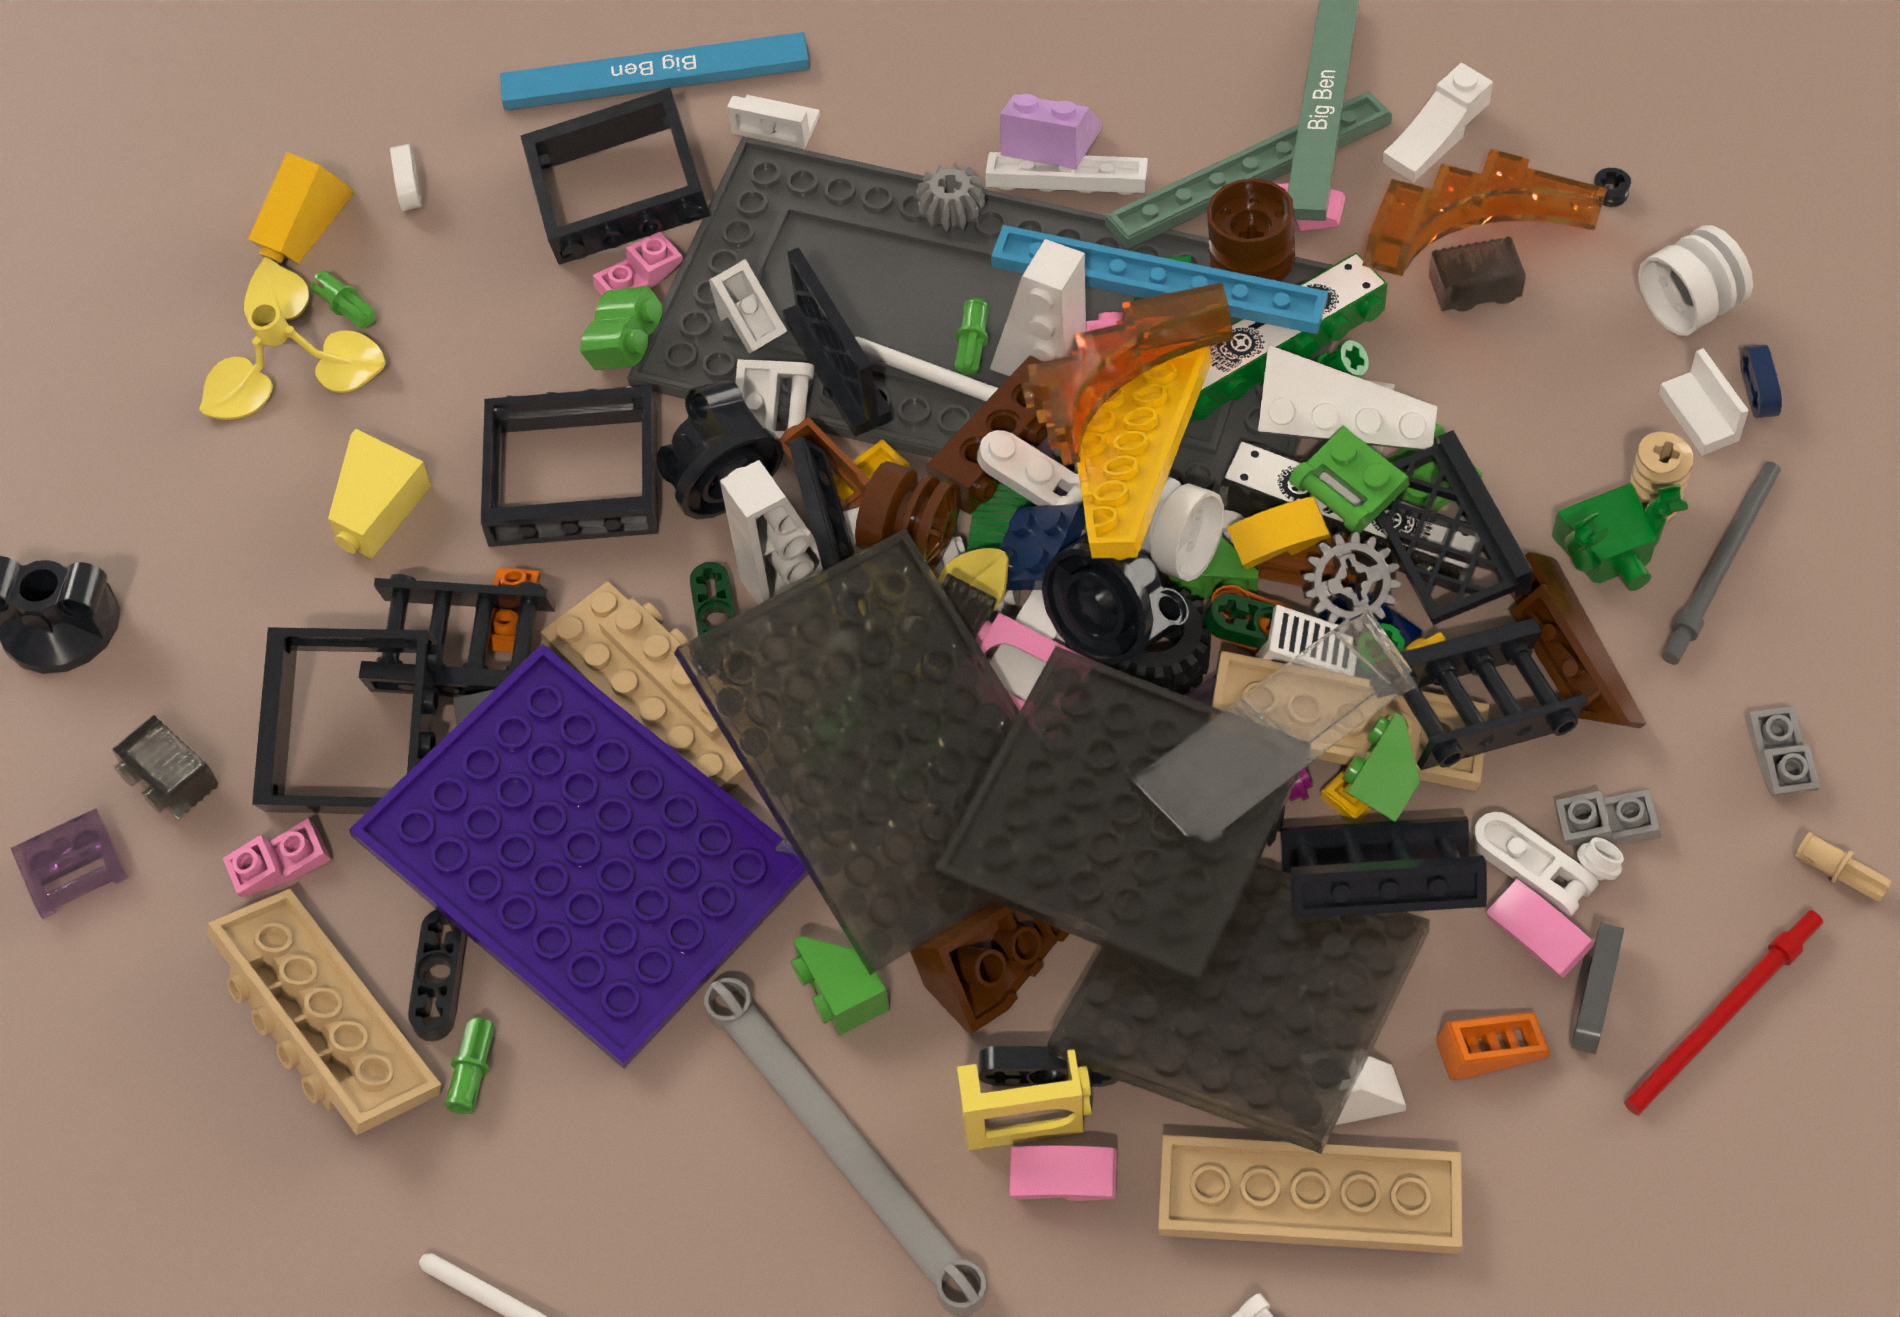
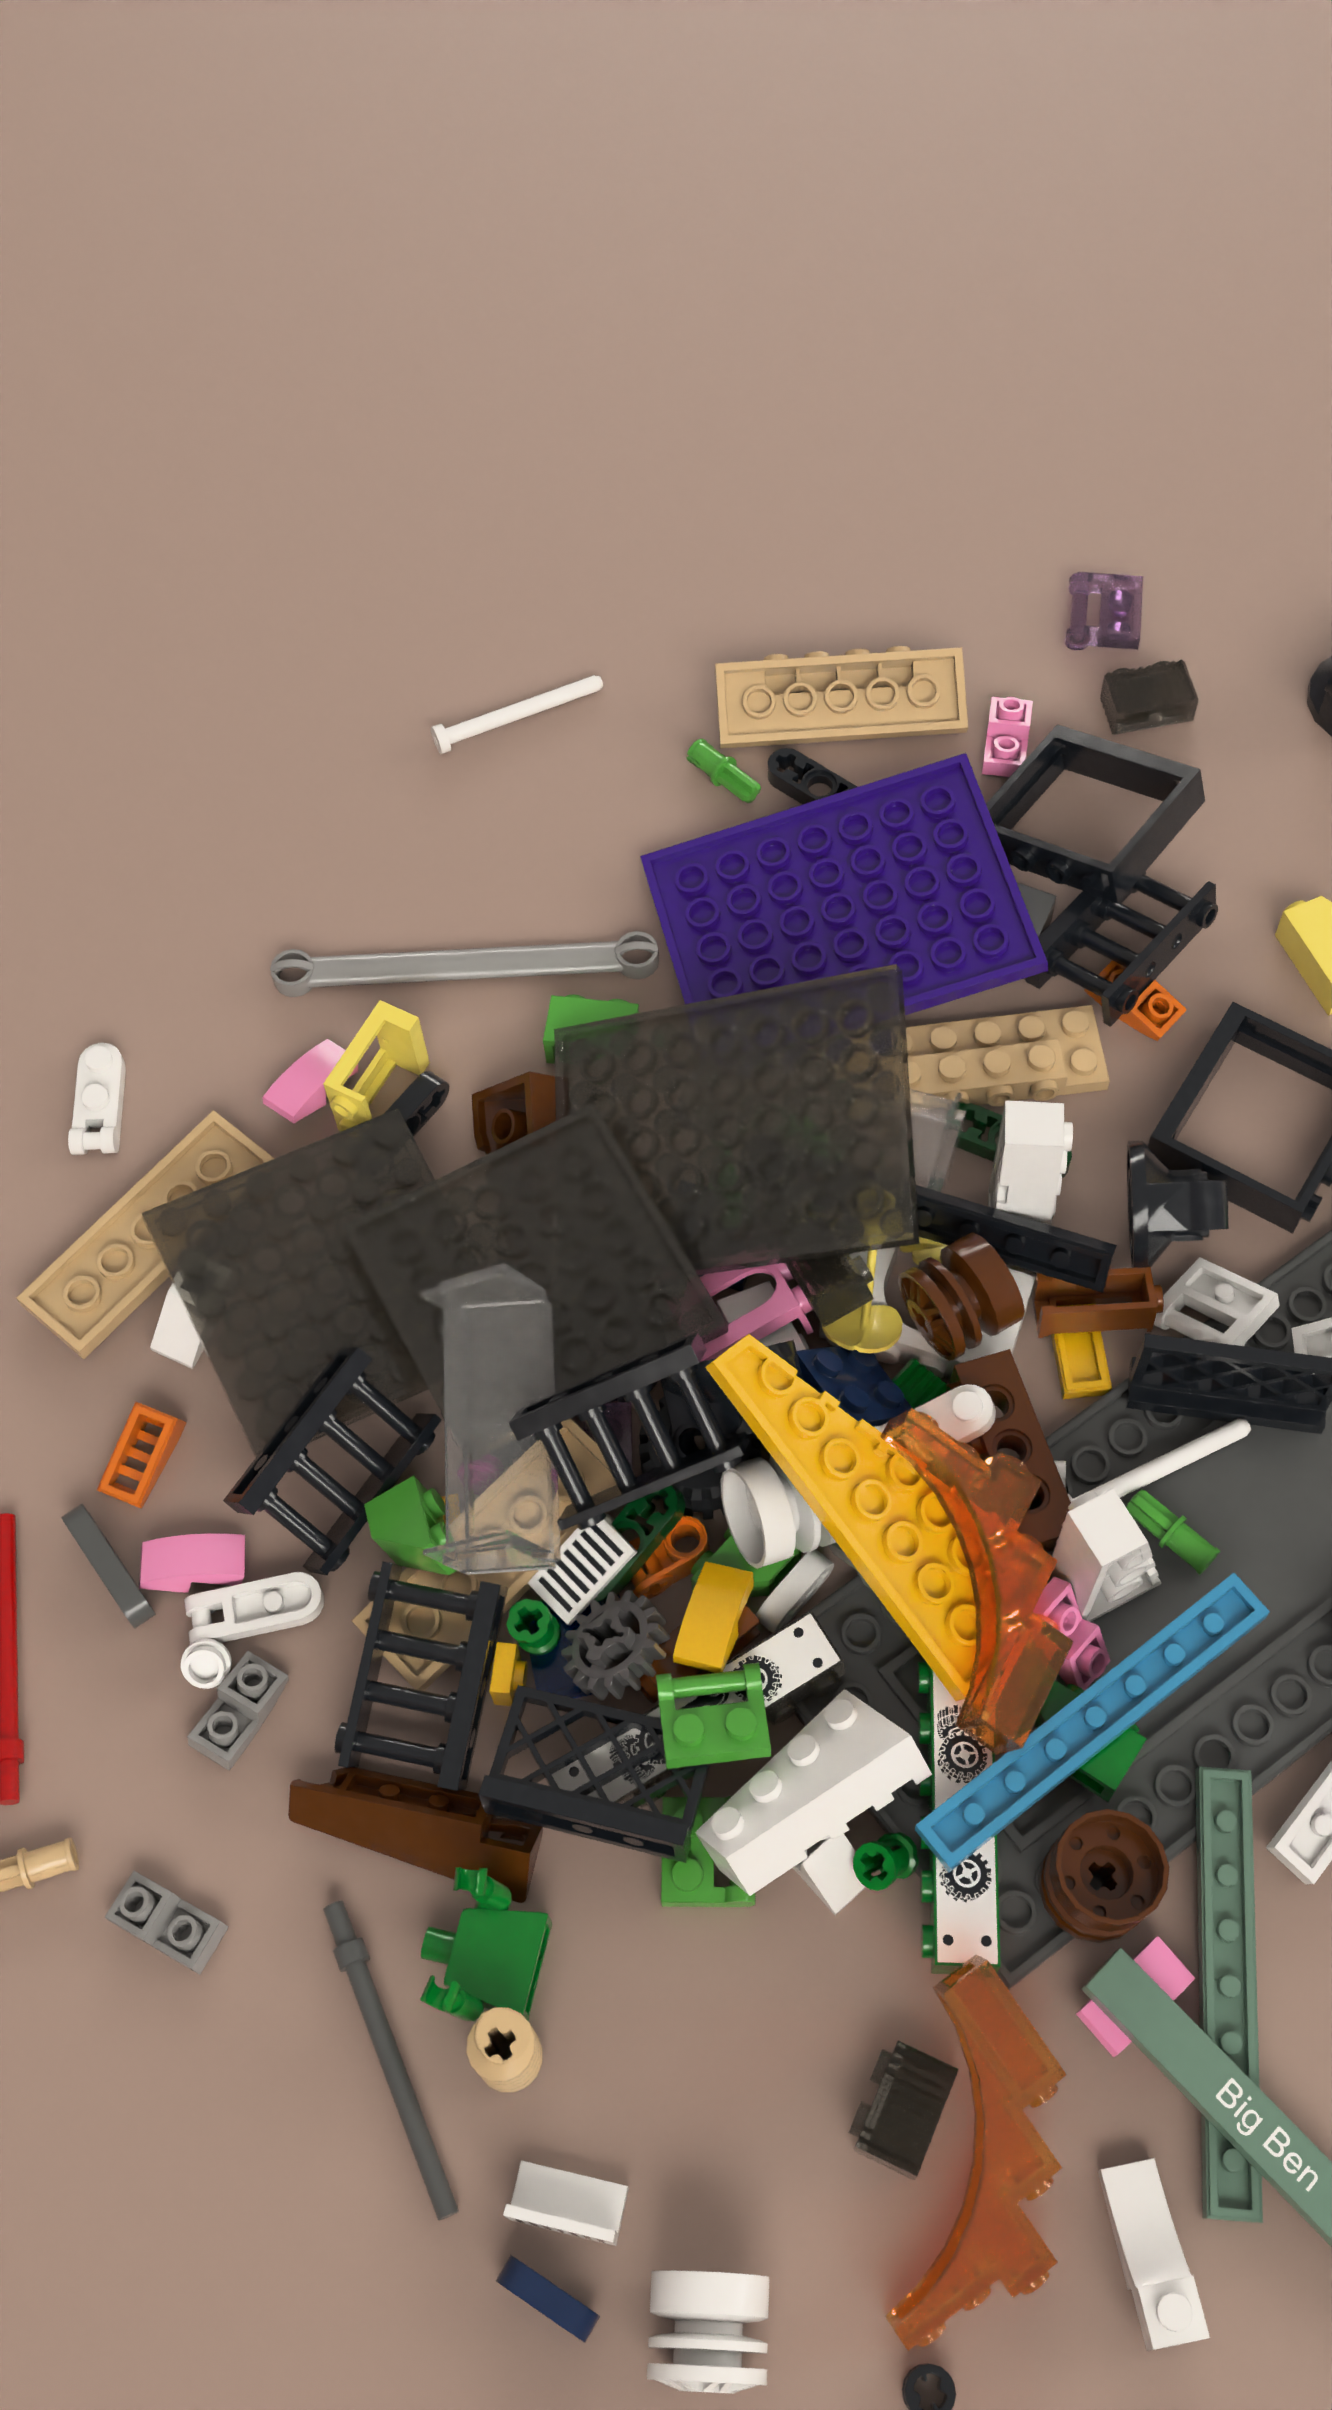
camera: 125 degrees right, 5 degrees up
(1194, 632) = (633, 1383): none -> black fence

